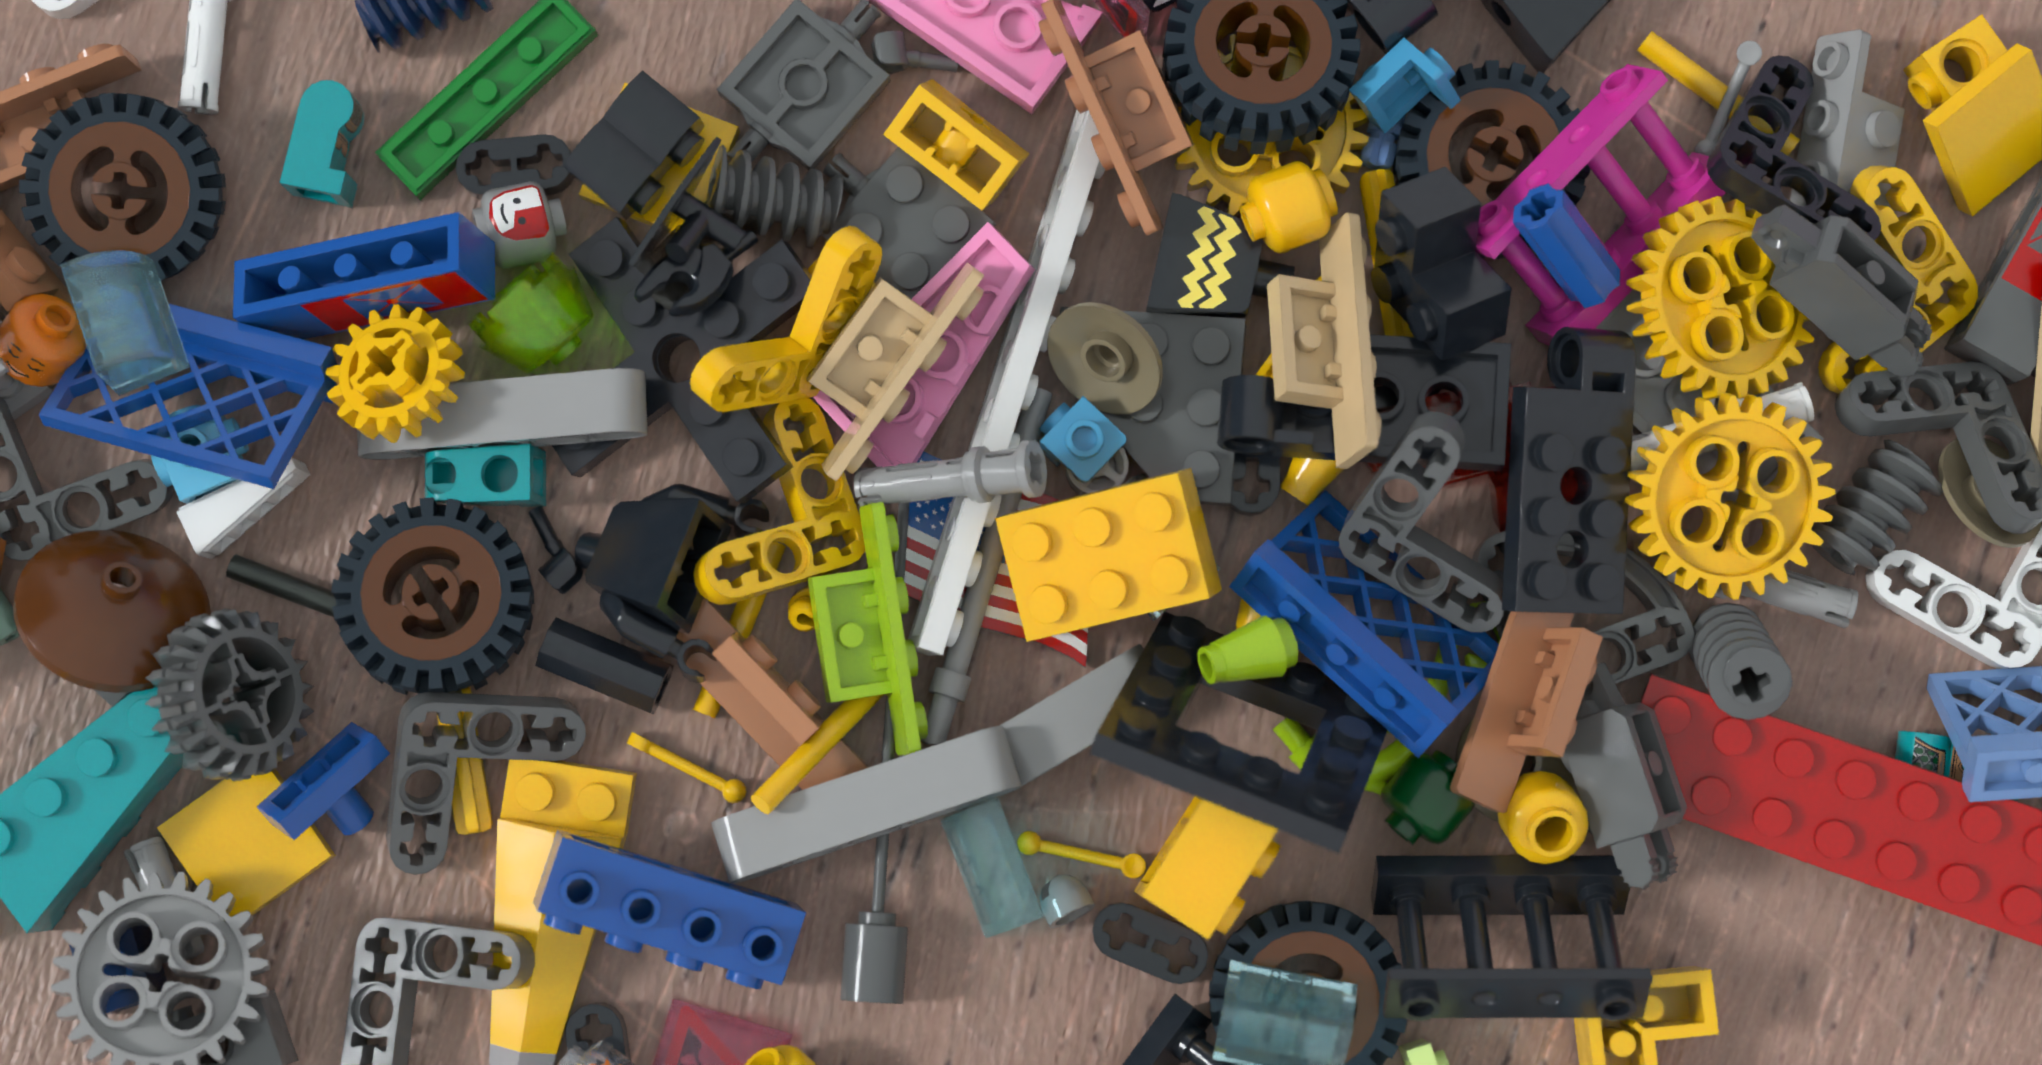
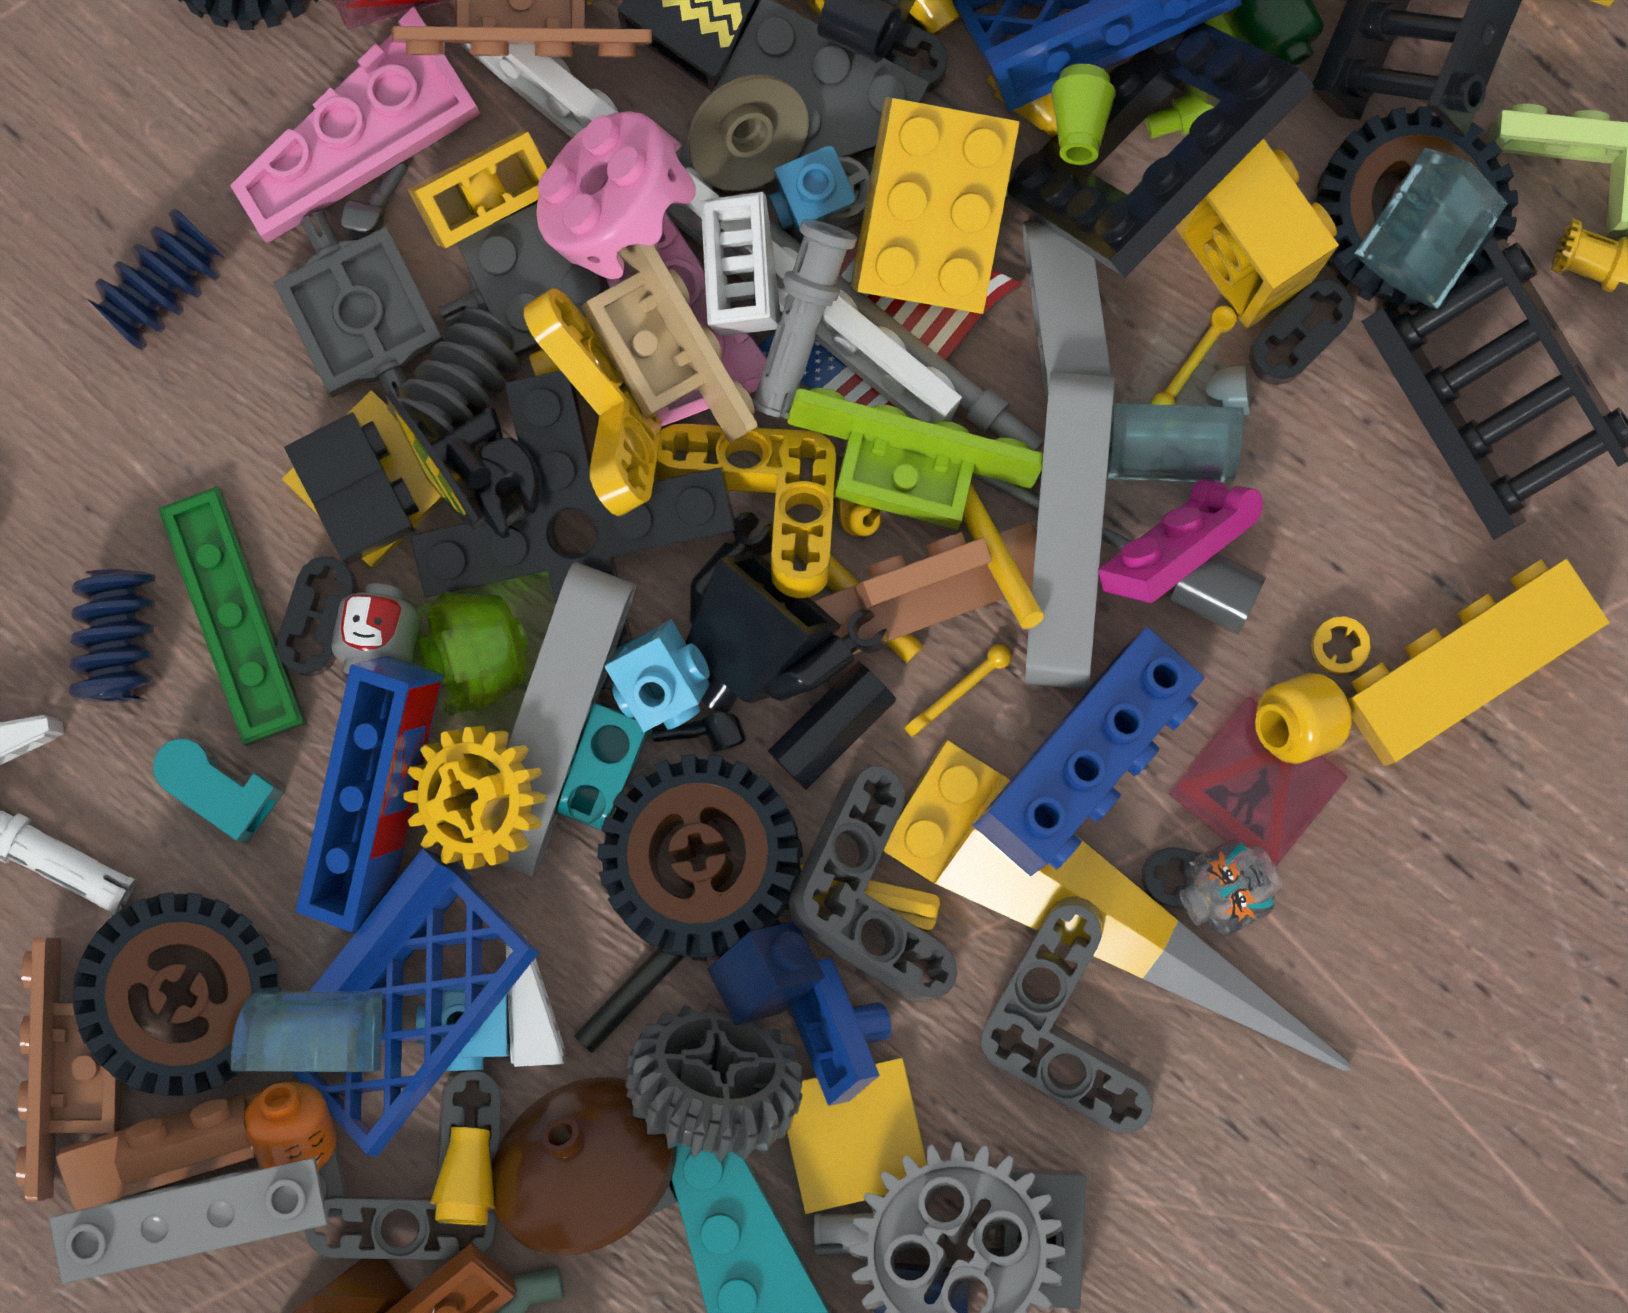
camera: 65 degrees left, 0 degrees up
(59, 512) = (465, 1180): none -> yellow cone
(349, 699) = (765, 973): none -> dark blue brick
(574, 490) = (658, 678): none -> medium azure brick
(897, 912) = (1182, 541): none -> dark pink plate
(988, 420) = (763, 289): none -> white slope
(1008, 279) = (642, 182): none -> bright pink plate

